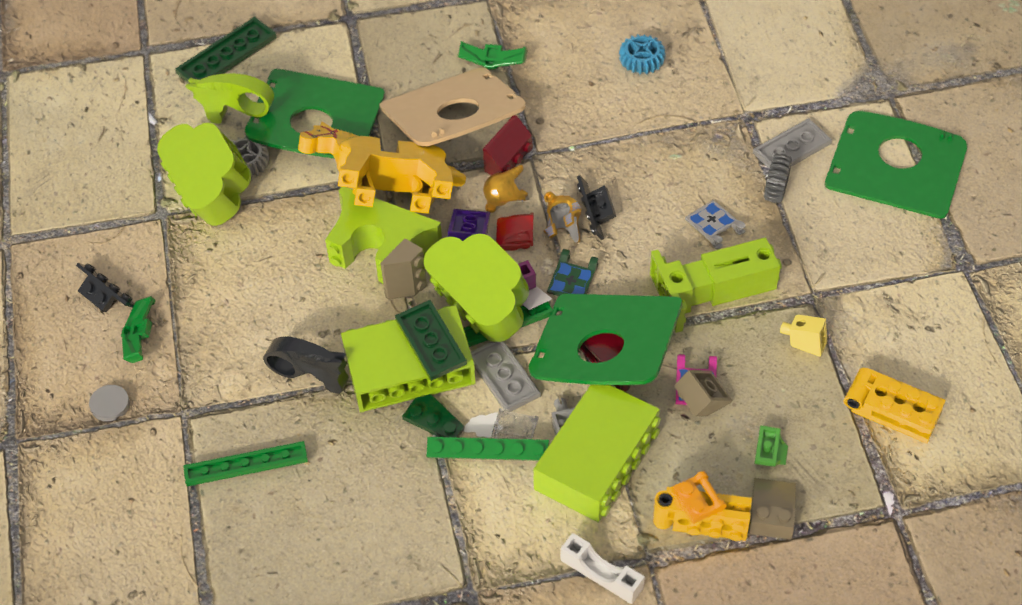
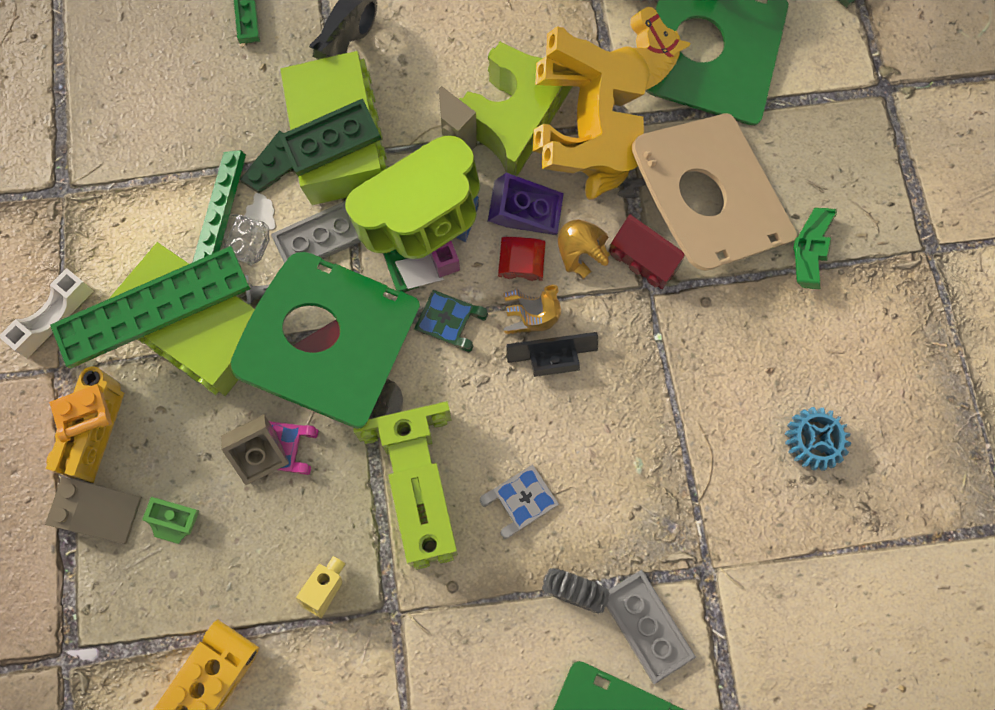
camera: 90 degrees right, 20 degrees up
(599, 458) = (149, 307): none -> green plate

